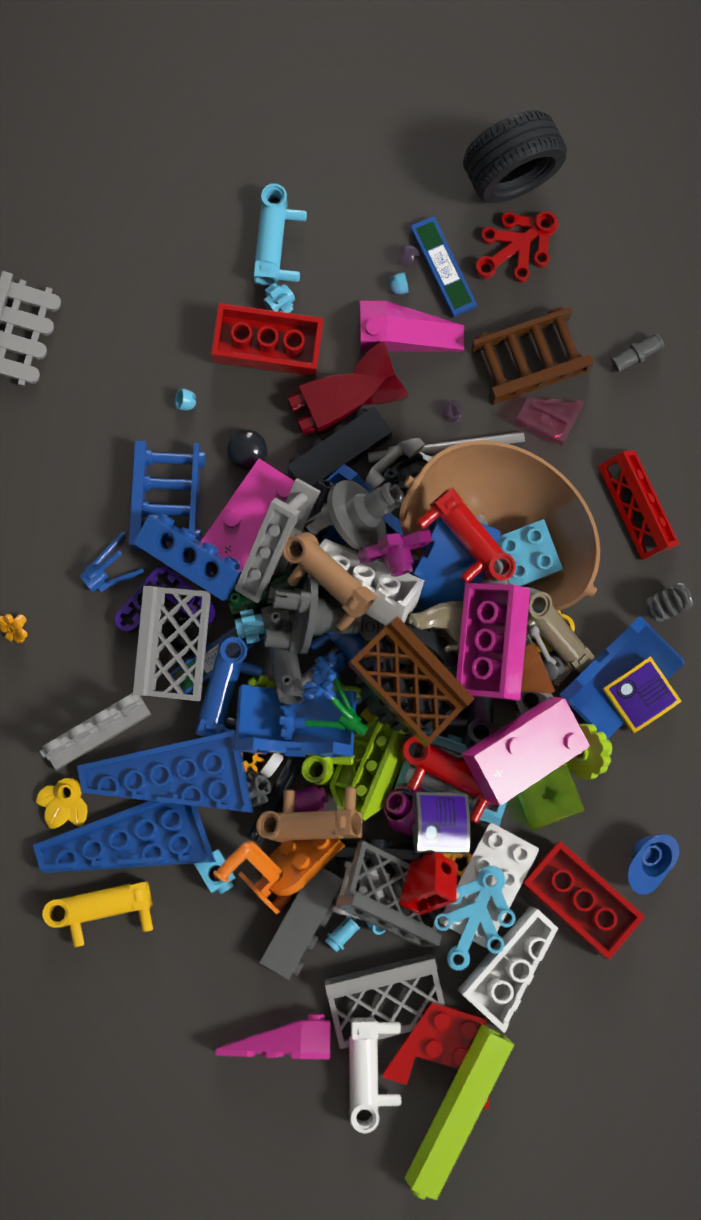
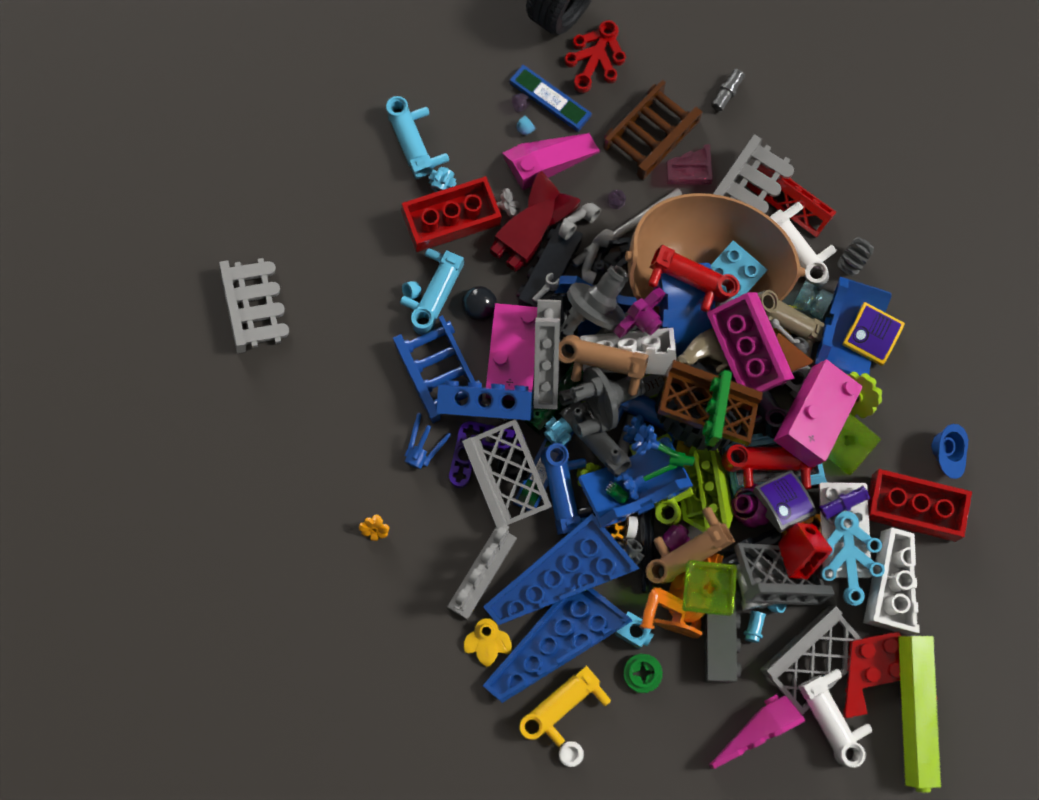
camera: 25 degrees left, 5 degrees down
(84, 961) = (571, 754): none -> white tile
(189, 924) = (650, 664): none -> green gear
(210, 414) = (437, 291): none -> medium azure piece
(272, 722) = (617, 493): none -> green piece
(288, 873) = (721, 578): none -> clear neon green brick
(322, 468) = (552, 286): none -> light grey hand
(334, 358) = (507, 203): none -> light grey plant
(410, 690) = (717, 408): none -> green tile
(415, 412) = (588, 212): none -> light grey bar
(501, 857) = (844, 502): none -> dark purple pin
(597, 626) = (813, 300): none -> clear light blue wheel
(607, 458) = (751, 174): none -> light grey fence
(613, 560) = (807, 257): none -> white piece

